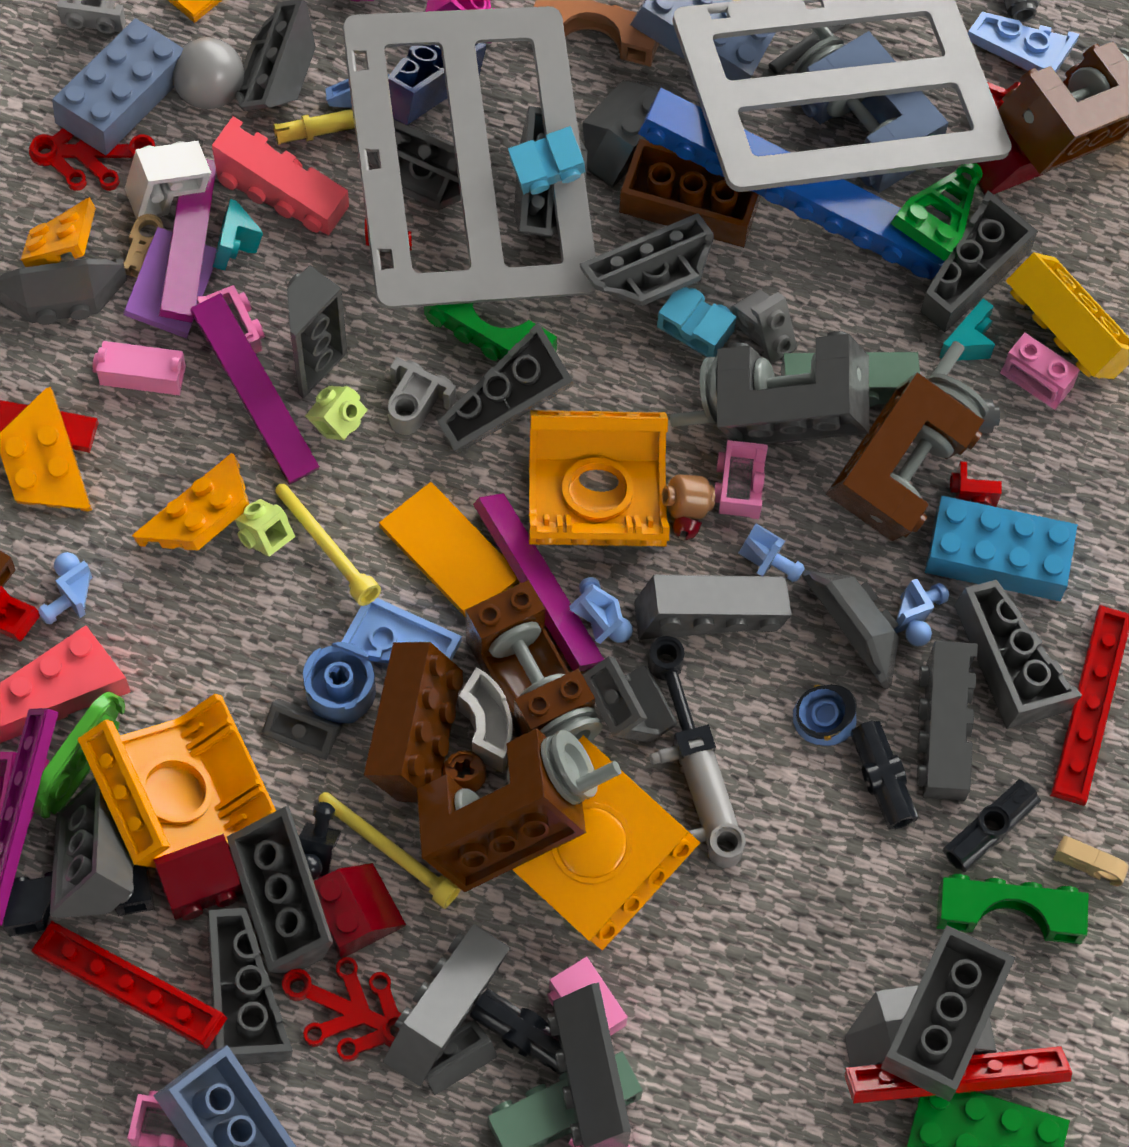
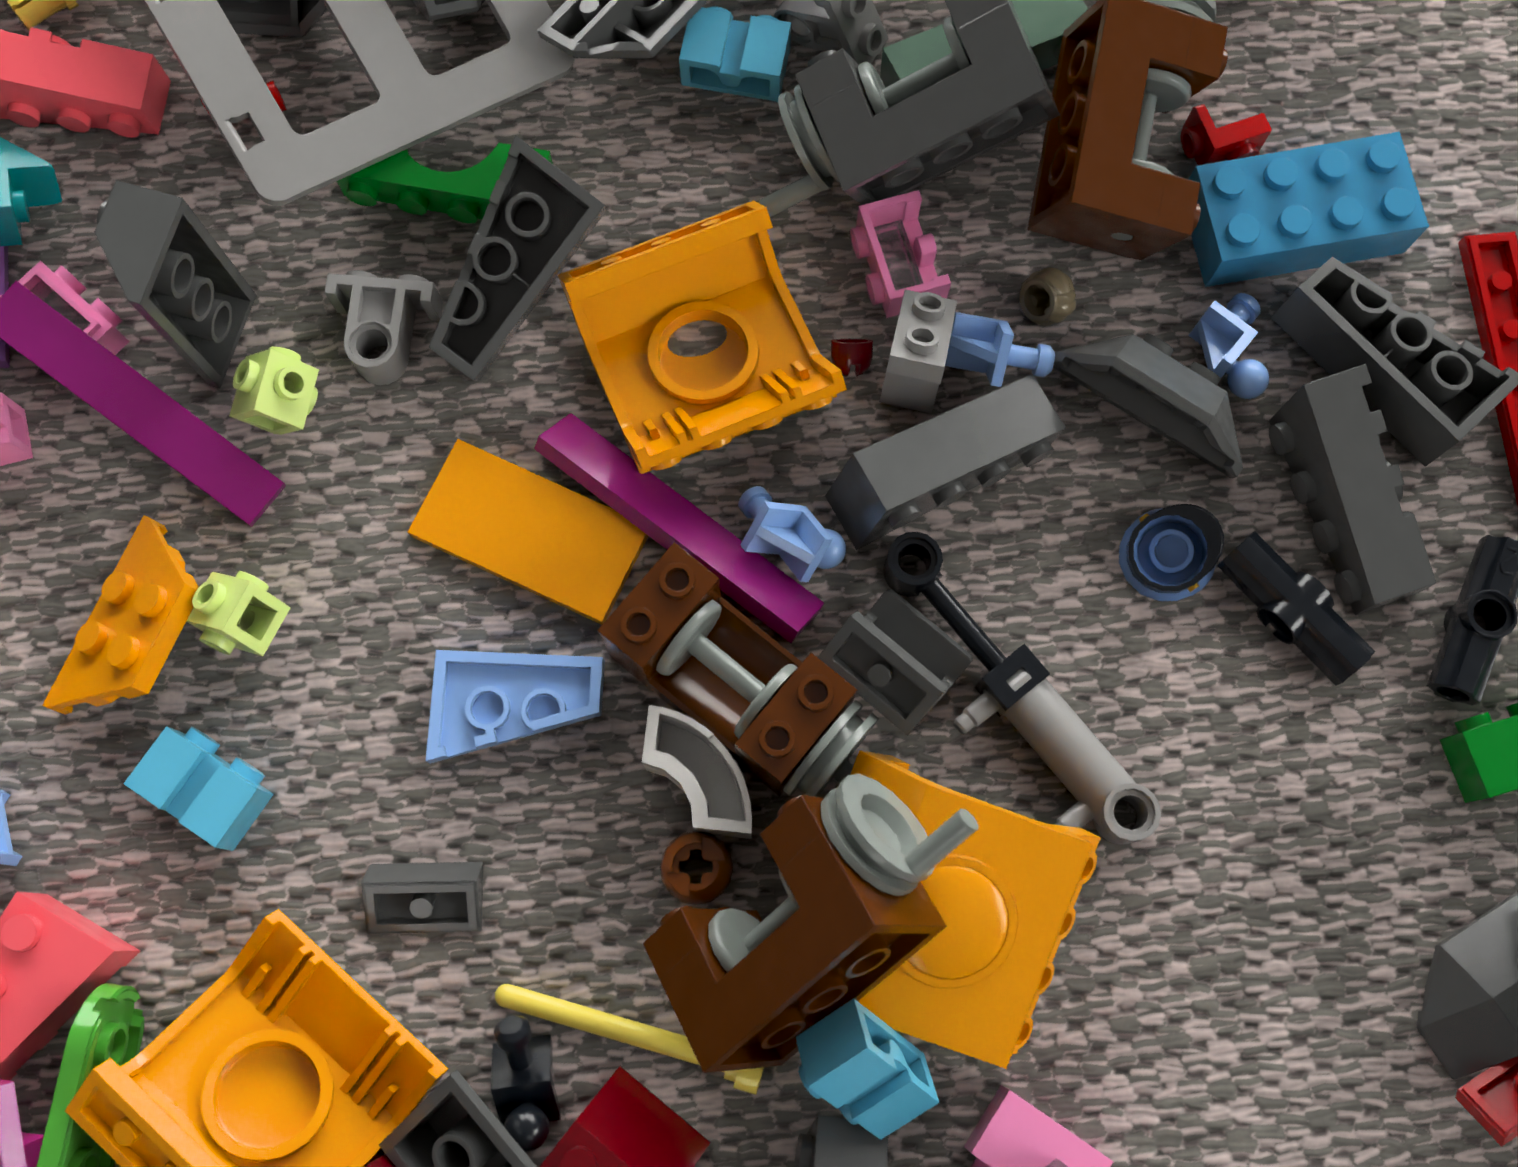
camera: 20 degrees left, 10 degrees up
(202, 614) = (200, 787): none -> medium azure brick
(325, 672) = (430, 785): medium blue brick -> none
(362, 587) = (425, 647): light yellow piece -> none
(413, 719) = (589, 829): reddish brown brick -> none
(511, 901) = (865, 1070): none -> medium azure brick
(689, 496) = (839, 311): medium nougat head -> none
(722, 537) = (918, 351): none -> light grey pin
(820, 538) = (1047, 296): none -> dark tan piece

